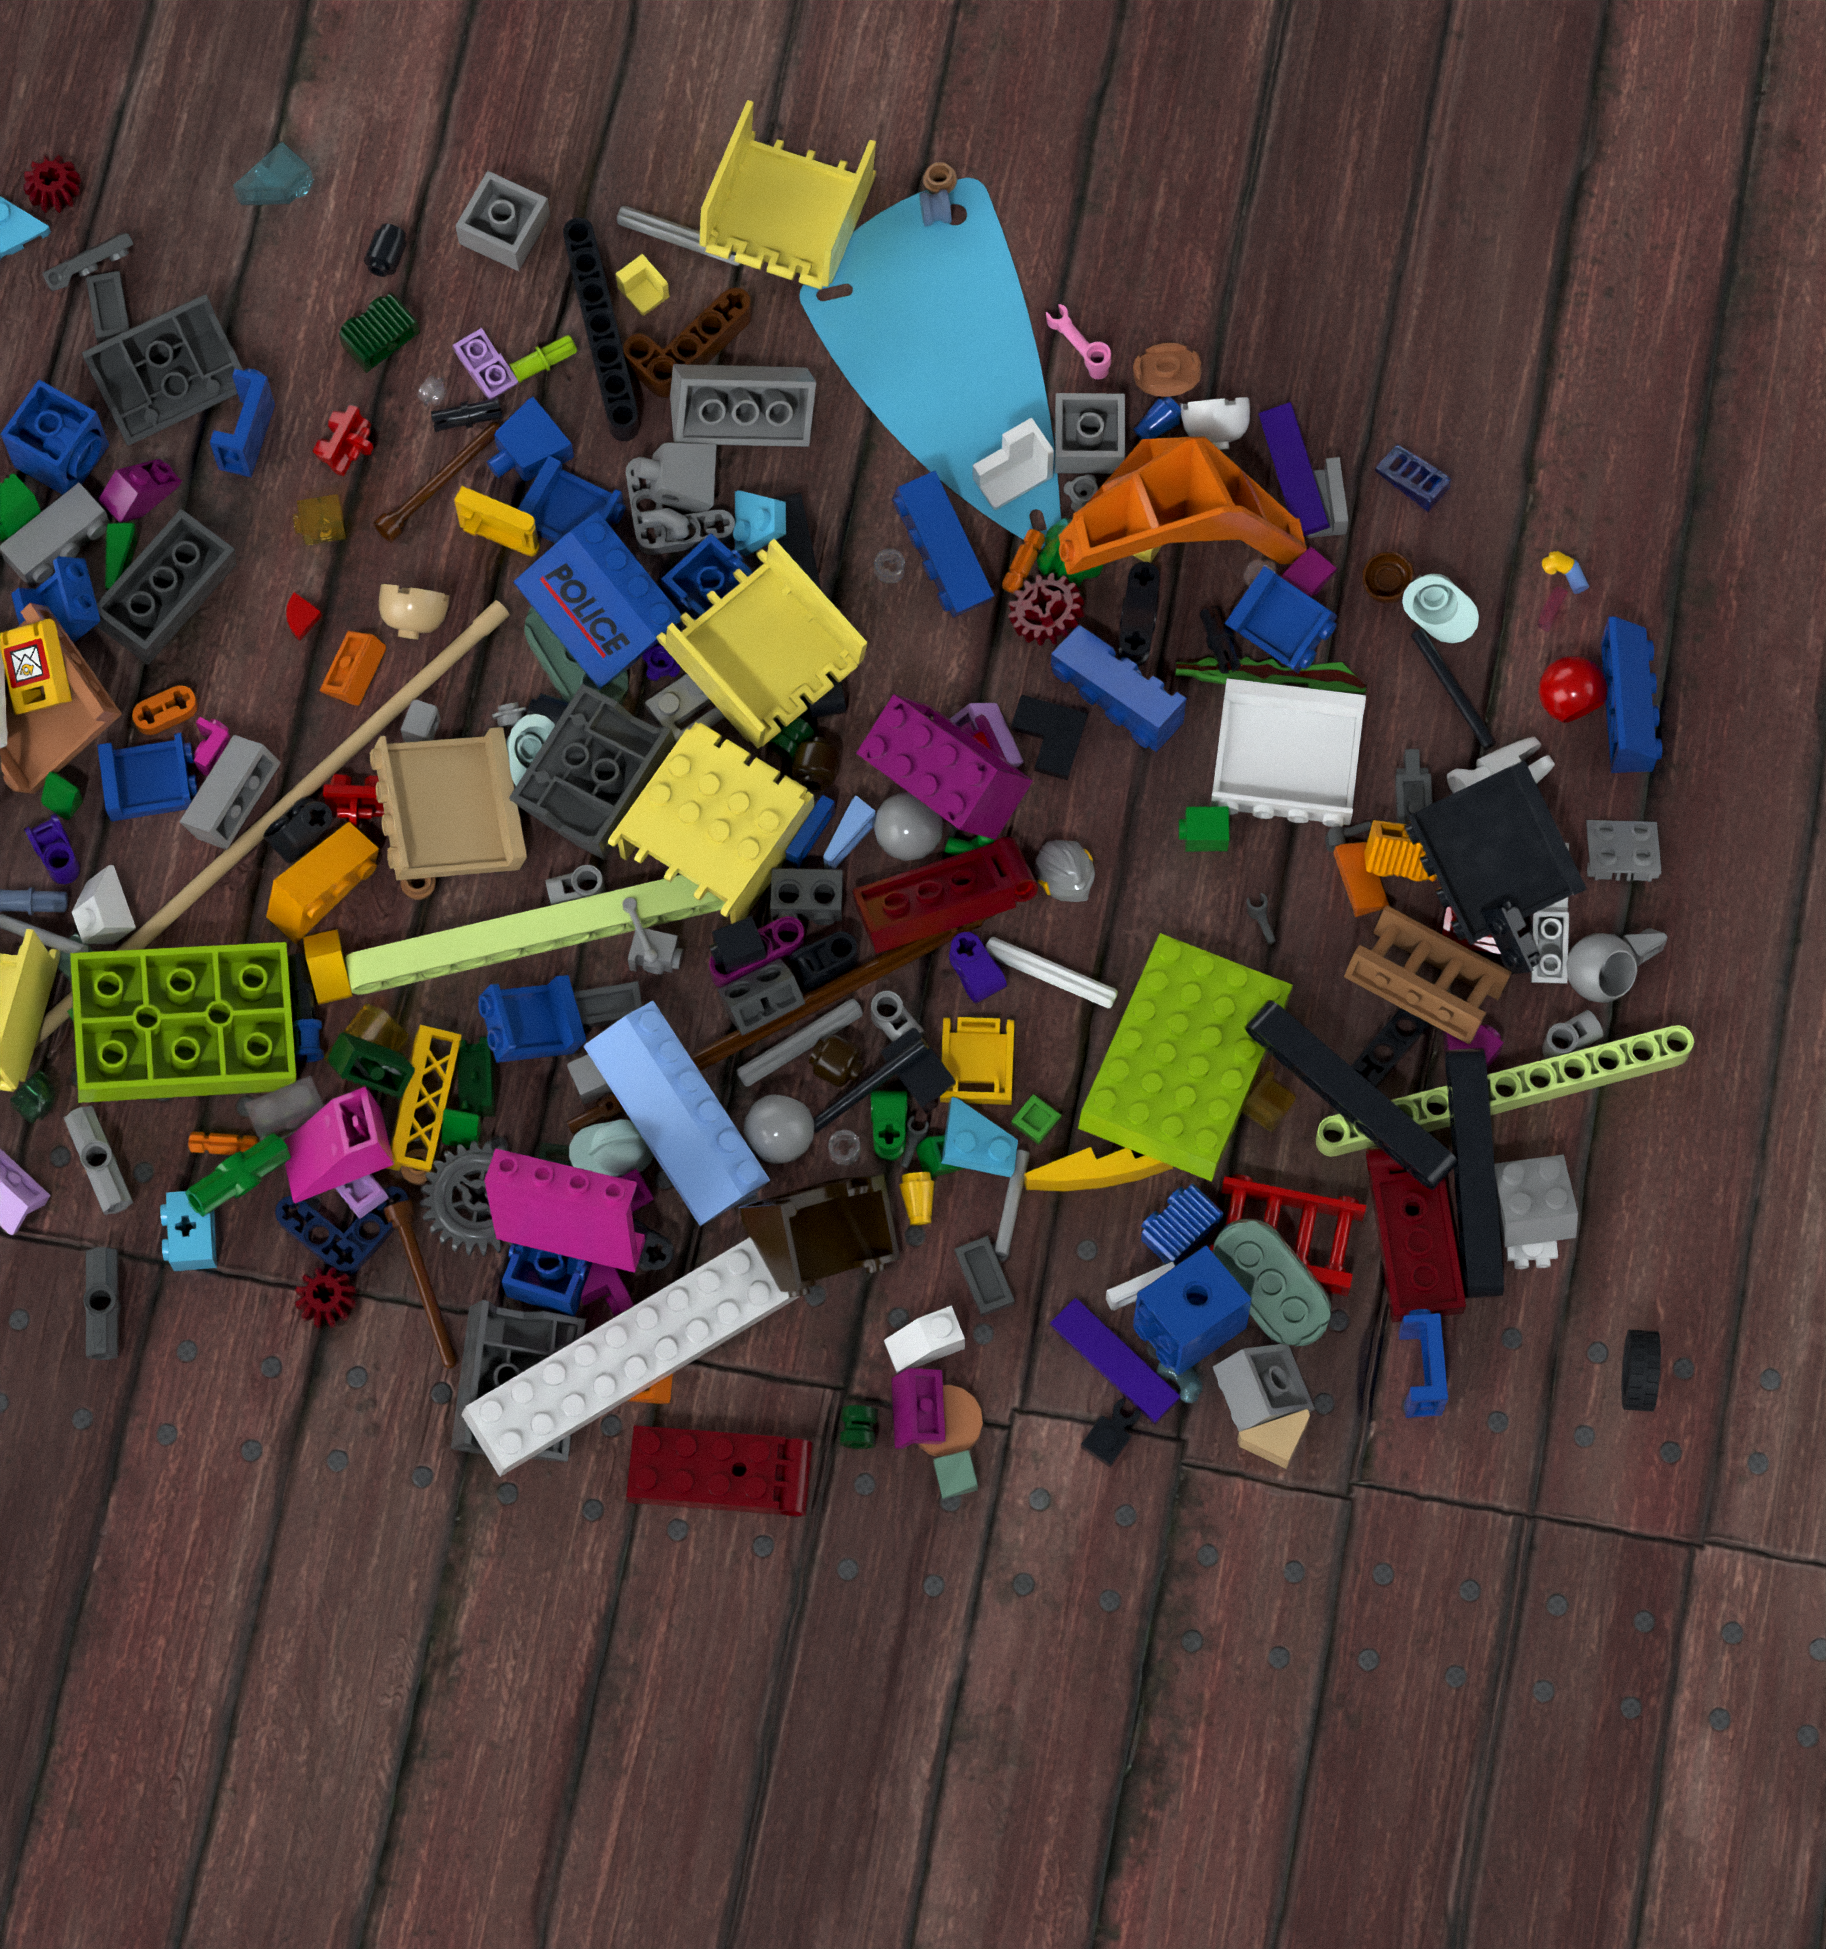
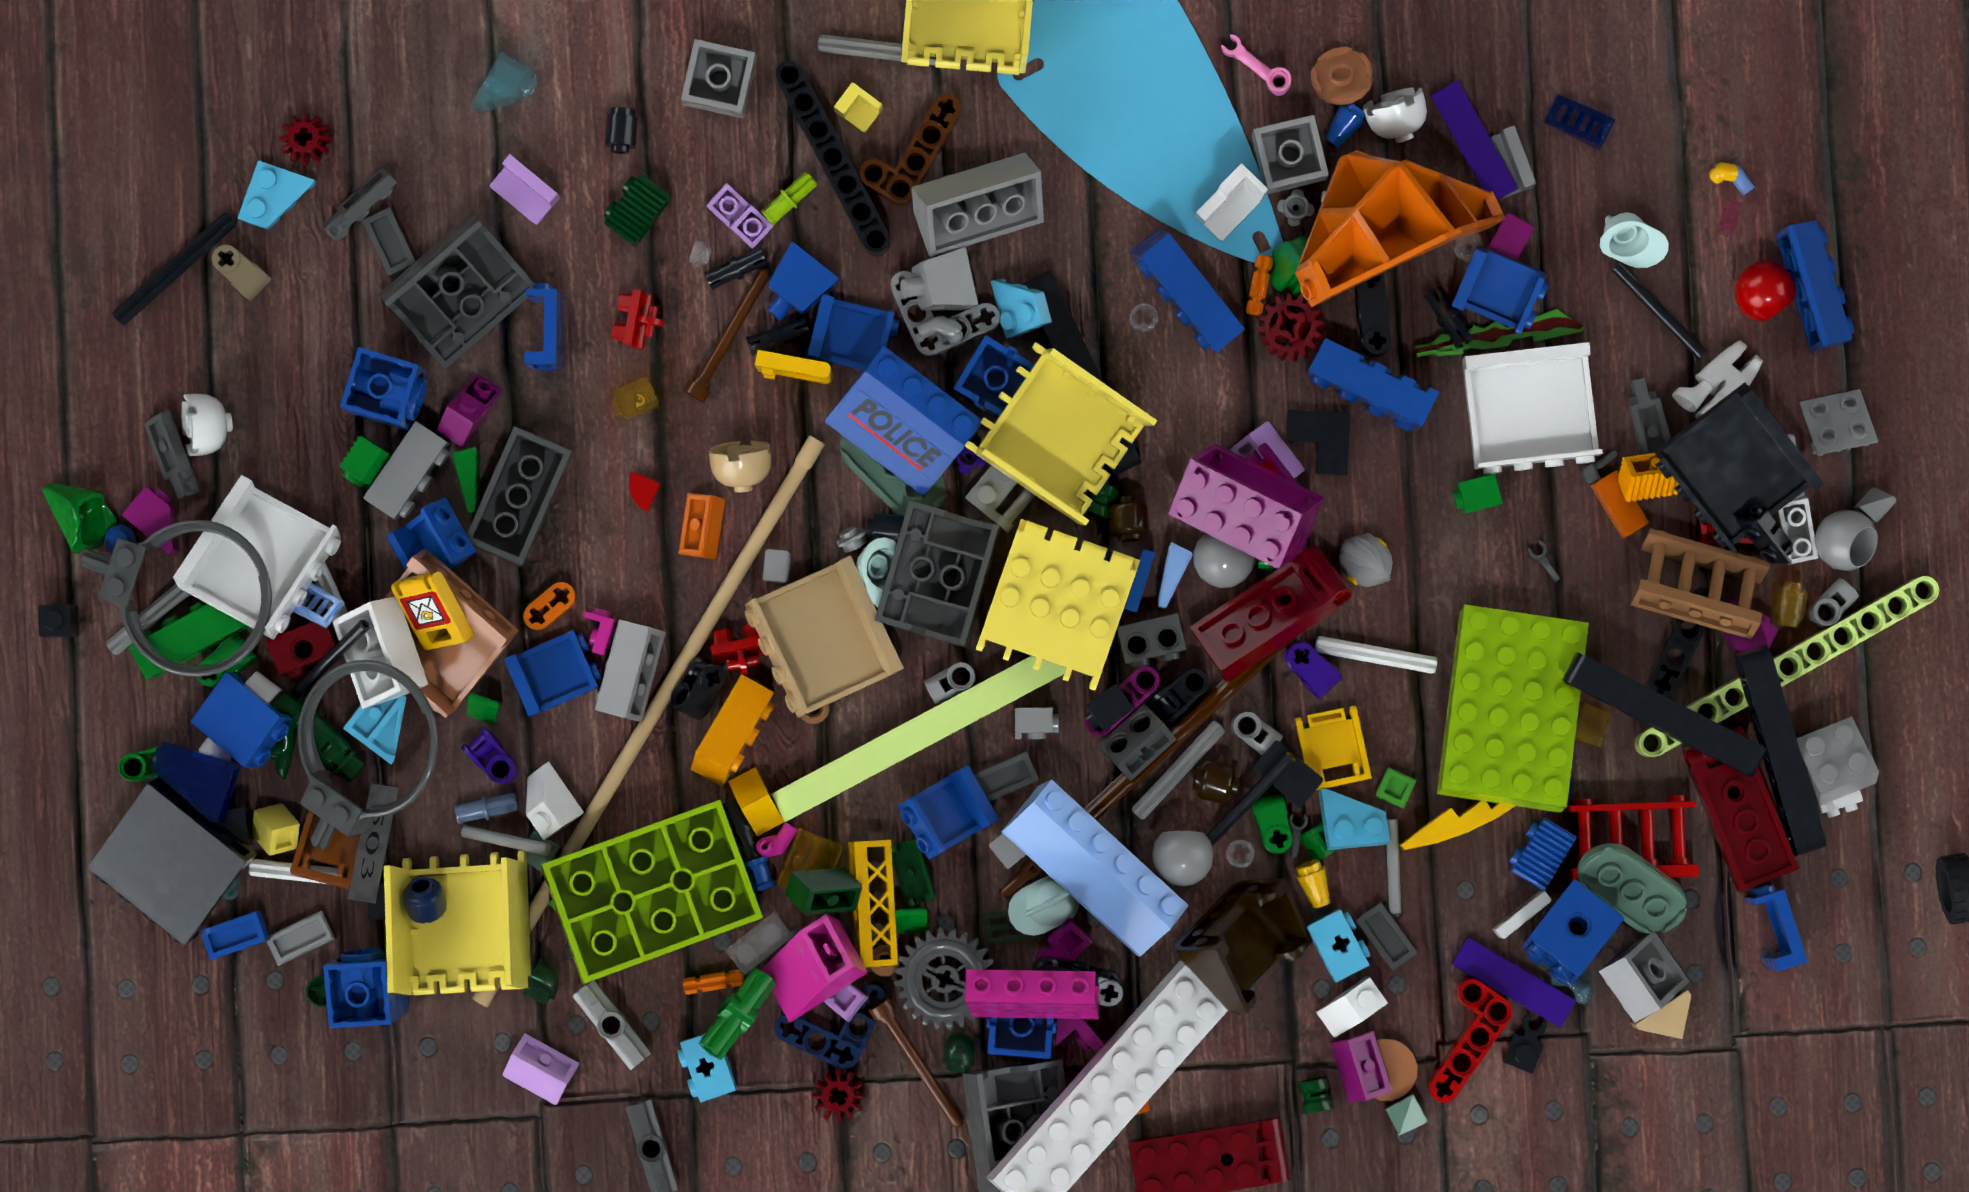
camera: 15 degrees left, 15 degrees up
(267, 287) = (524, 190): none -> lavender panel
(334, 1014) = (778, 843): none -> dark pink arm
(472, 1285) = (959, 1052): none -> clear green piece
(503, 492) = (778, 336): none -> black pin
(630, 907) = (1004, 691): light grey hinge -> none
(924, 1289) = (1338, 963): none -> medium azure brick
(1040, 1413) = (1464, 1045): none -> red beam
(1387, 577) = (1581, 224): reddish brown hair -> none
(1524, 1026) = (1789, 604): none -> clear yellow brick

